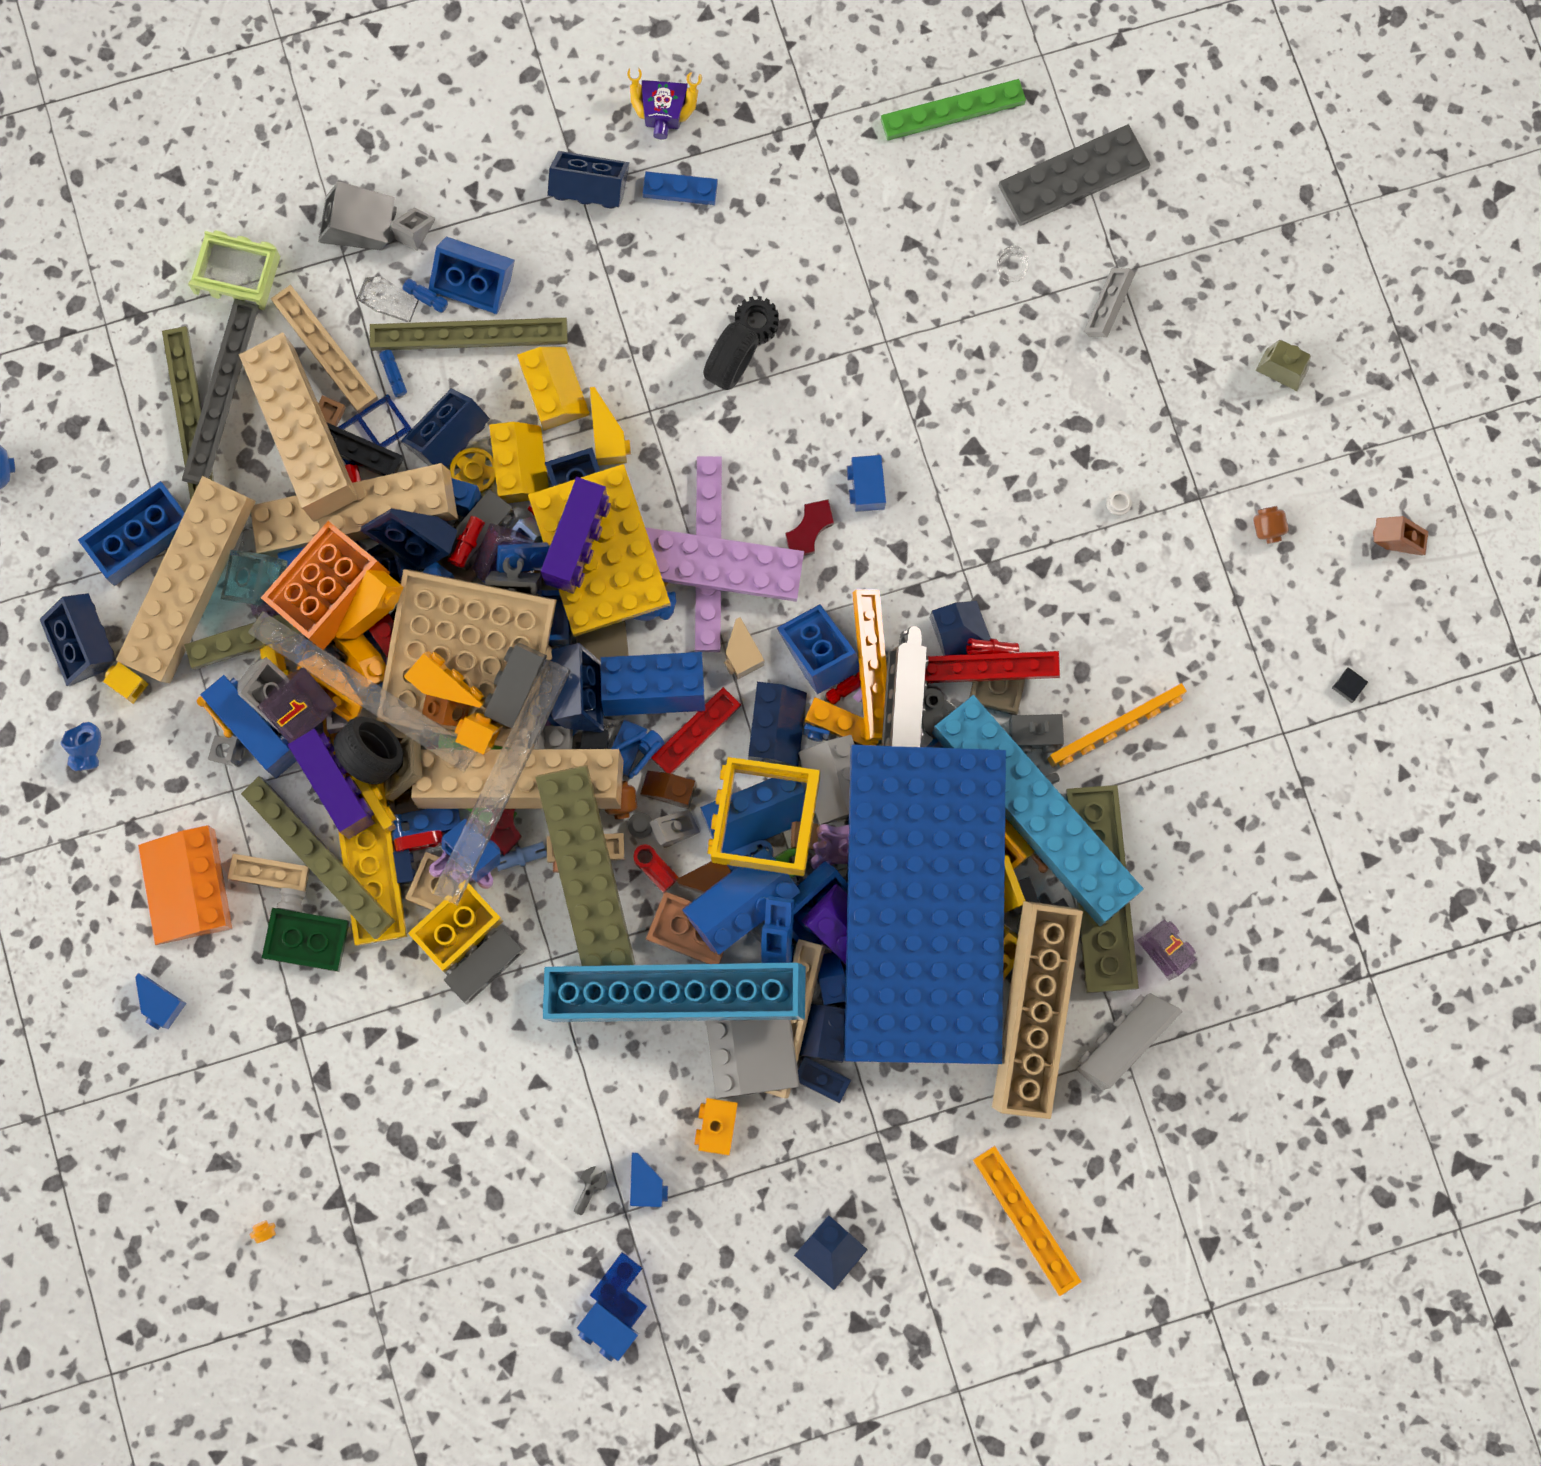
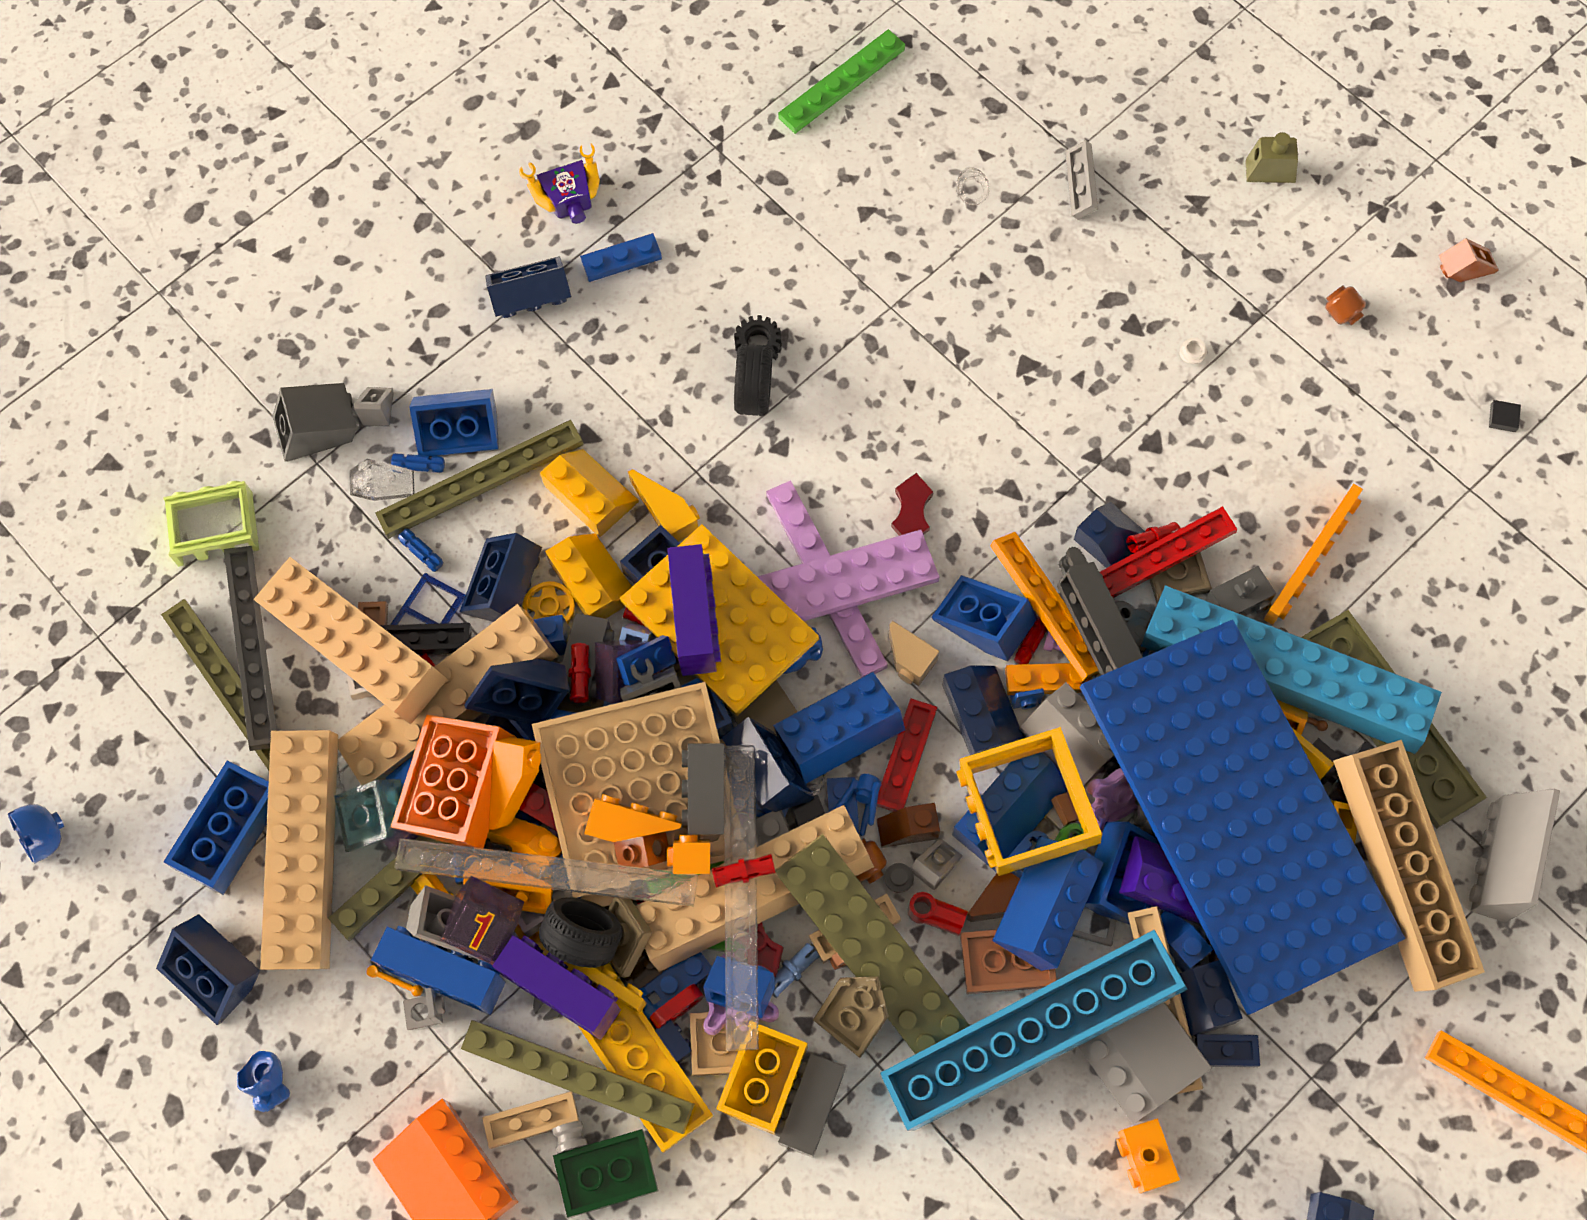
camera: 20 degrees left, 10 degrees down
(125, 682) = (280, 989): yellow brick -> none
(324, 349) = (339, 557): tan plate -> none
(510, 764) = (743, 870): none -> red pin
(549, 912) = (854, 1012): none -> dark tan tile
(777, 931) = (1104, 912): blue slope -> none
(867, 483) = (946, 440): blue brick -> none
(1074, 175) = (984, 88): dark grey plate -> none
(1168, 949) = (1492, 746): clear purple slope -> none

